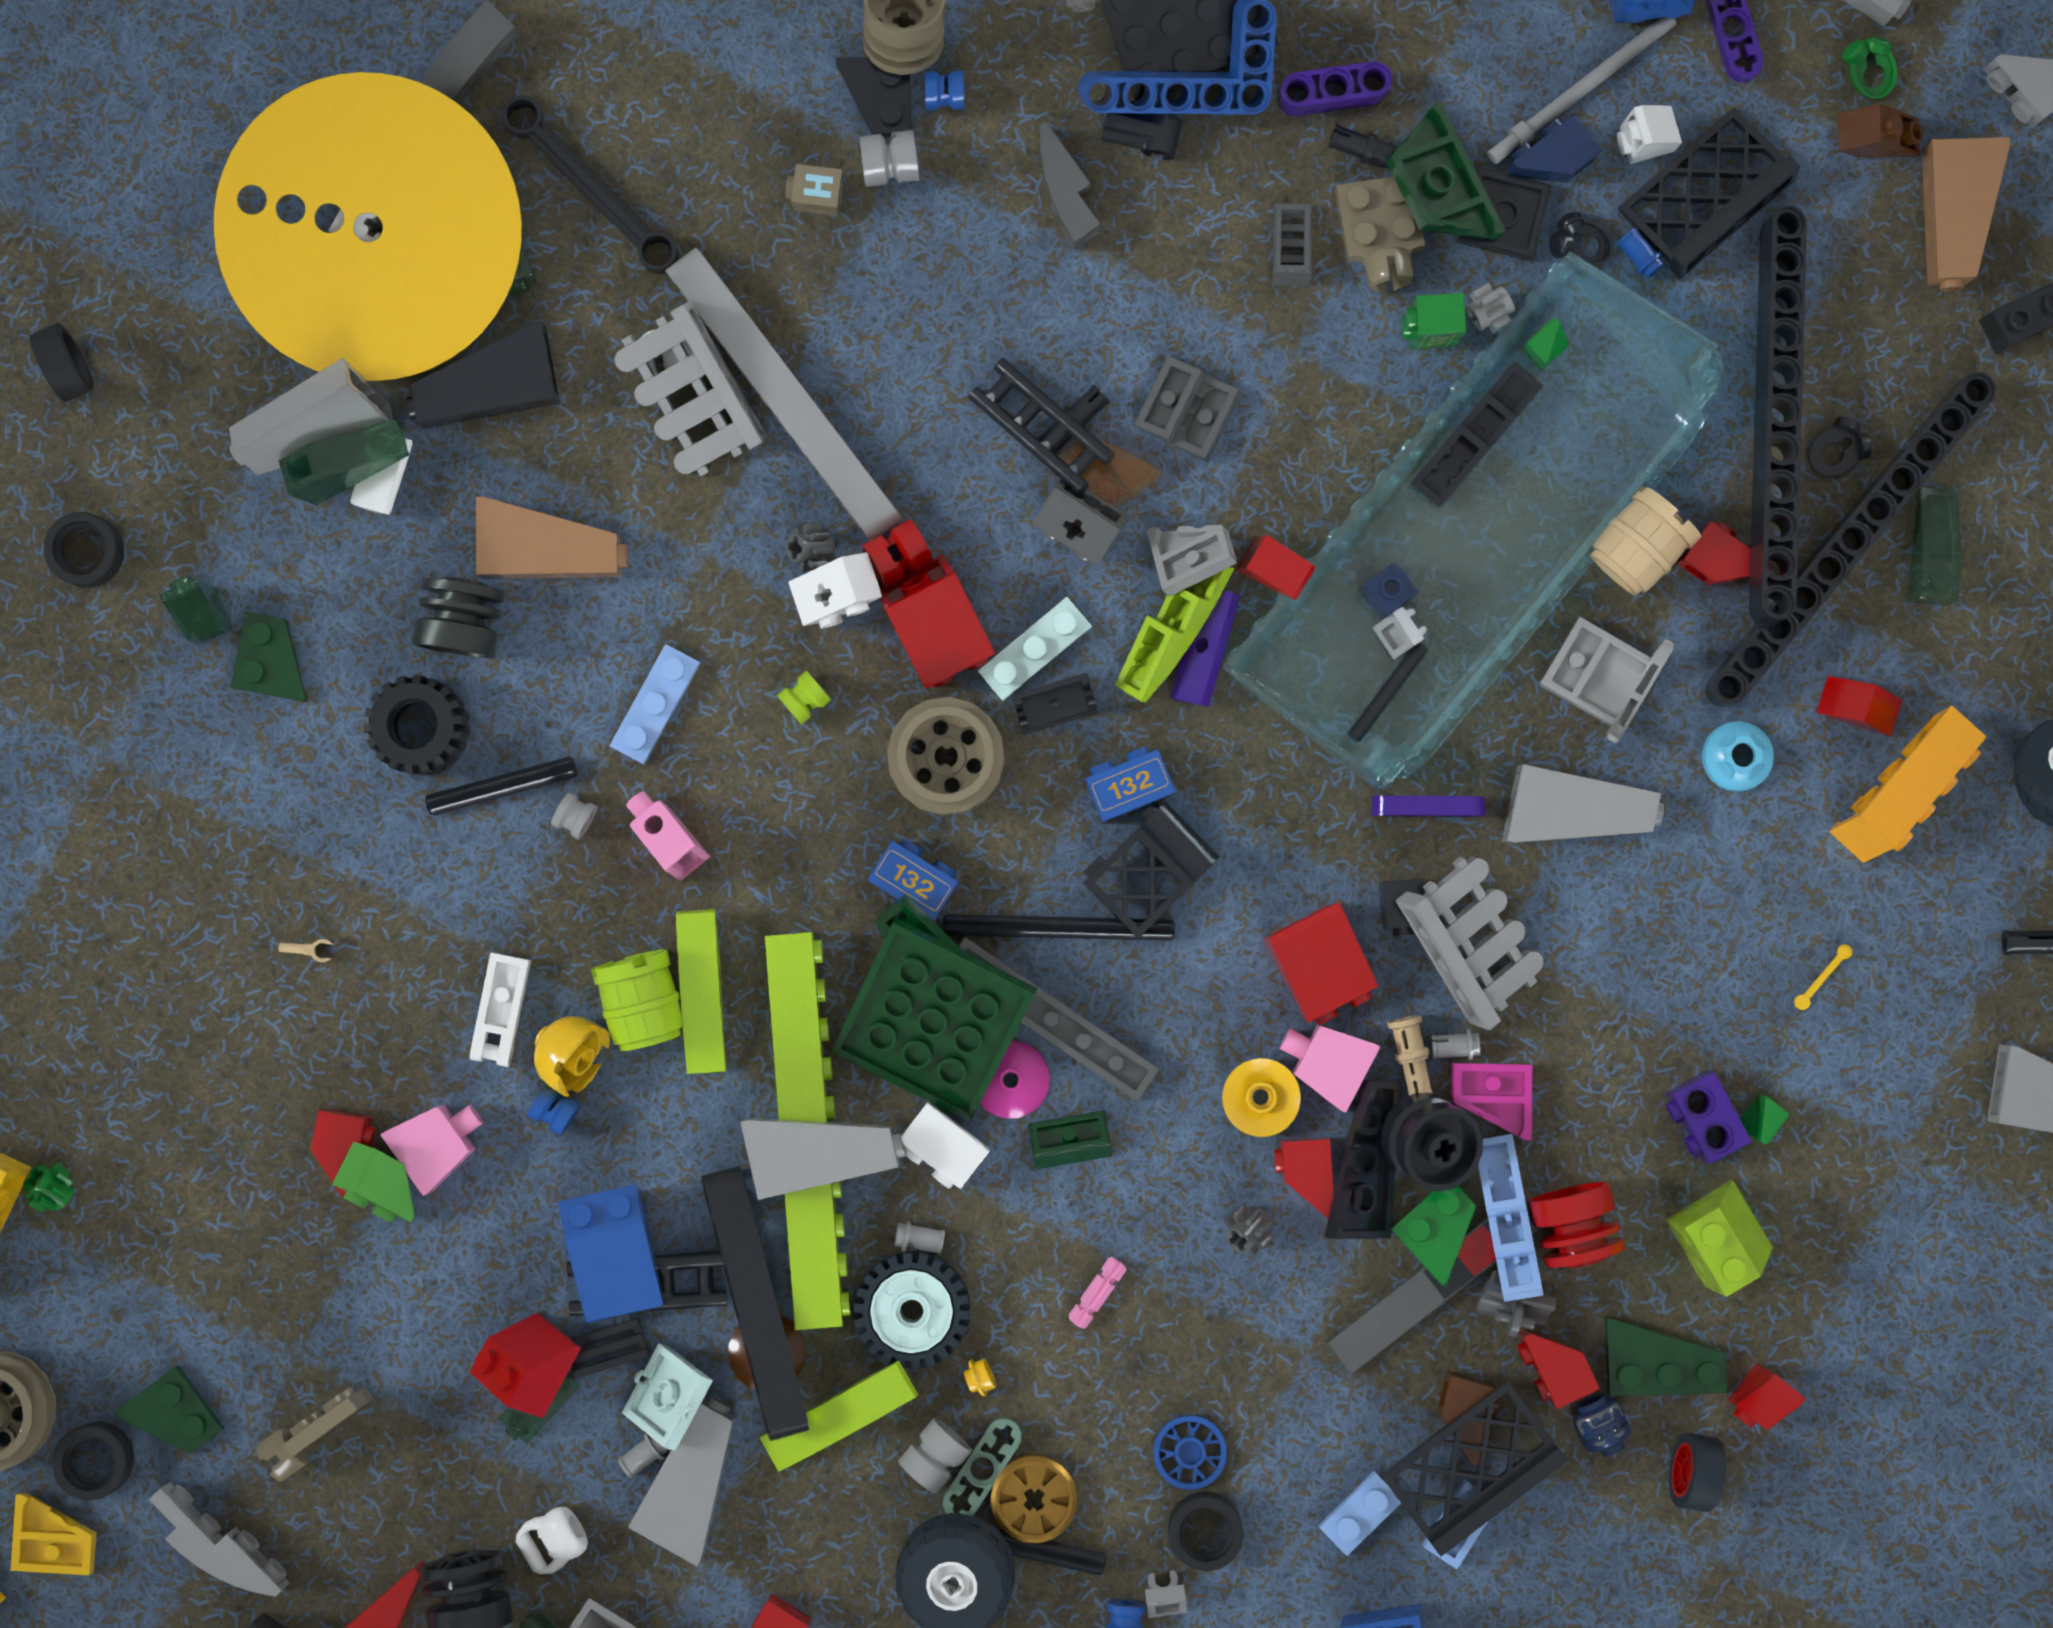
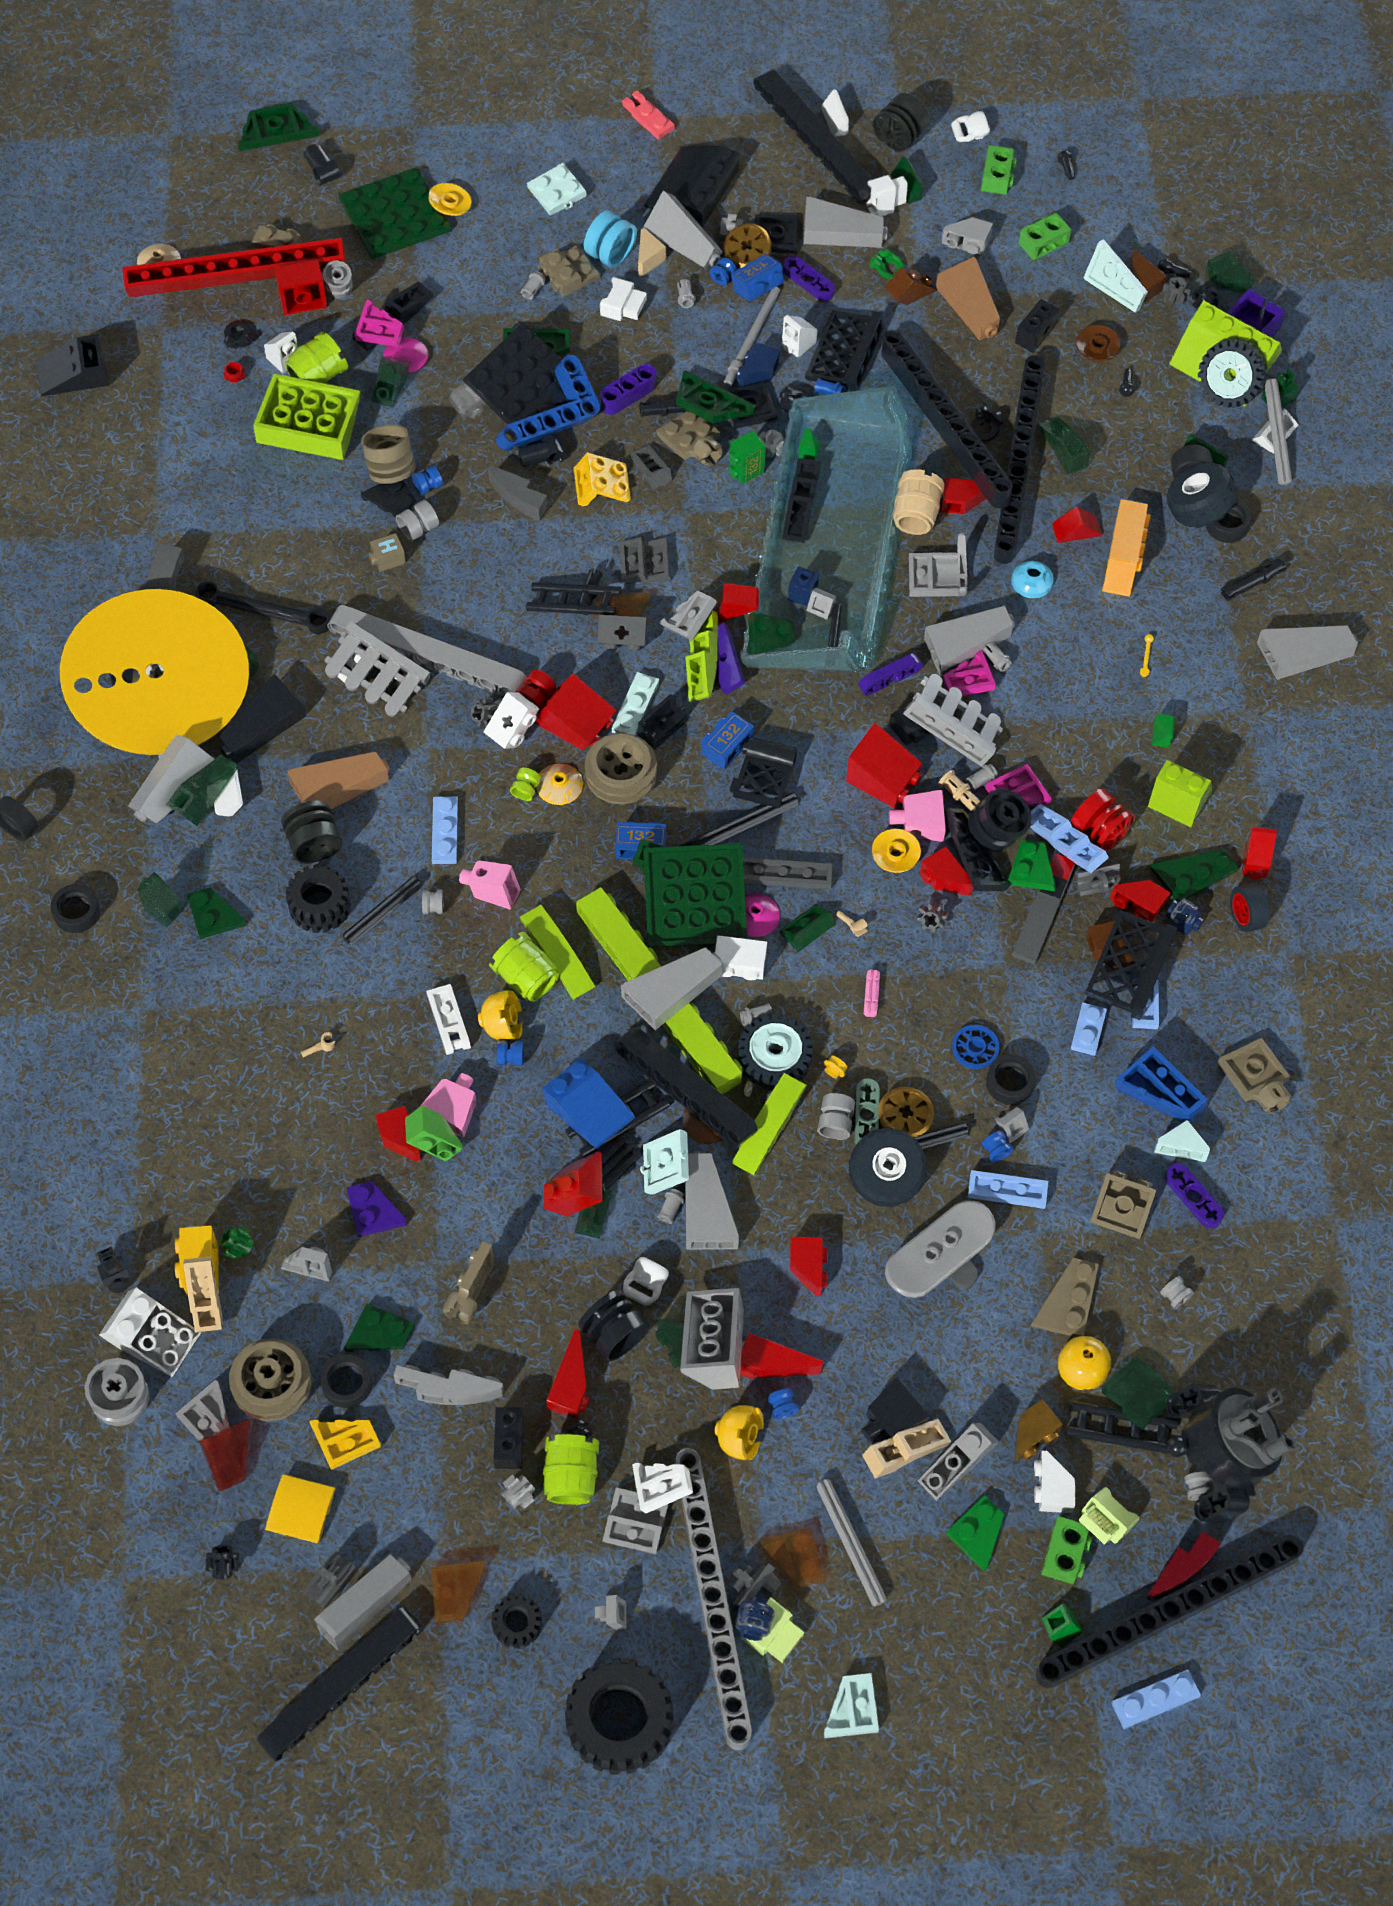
camera: 30 degrees left, 25 degrees down
(121, 1279) = (309, 1262): none -> light grey wing
(253, 1234) = (372, 1210): none -> dark purple wing
(871, 730) = (560, 792): none -> tan dish
(1138, 1181) = (858, 927): none -> tan hand
(1202, 232) = (602, 477): none -> yellow bracket
(1288, 646) = (769, 633): none -> dark green wing
(1540, 873) = (971, 676): none -> dark pink wing
(1602, 861) = (1000, 660): none -> light grey pin
(1715, 1111) = (1136, 739): dark purple brick -> none

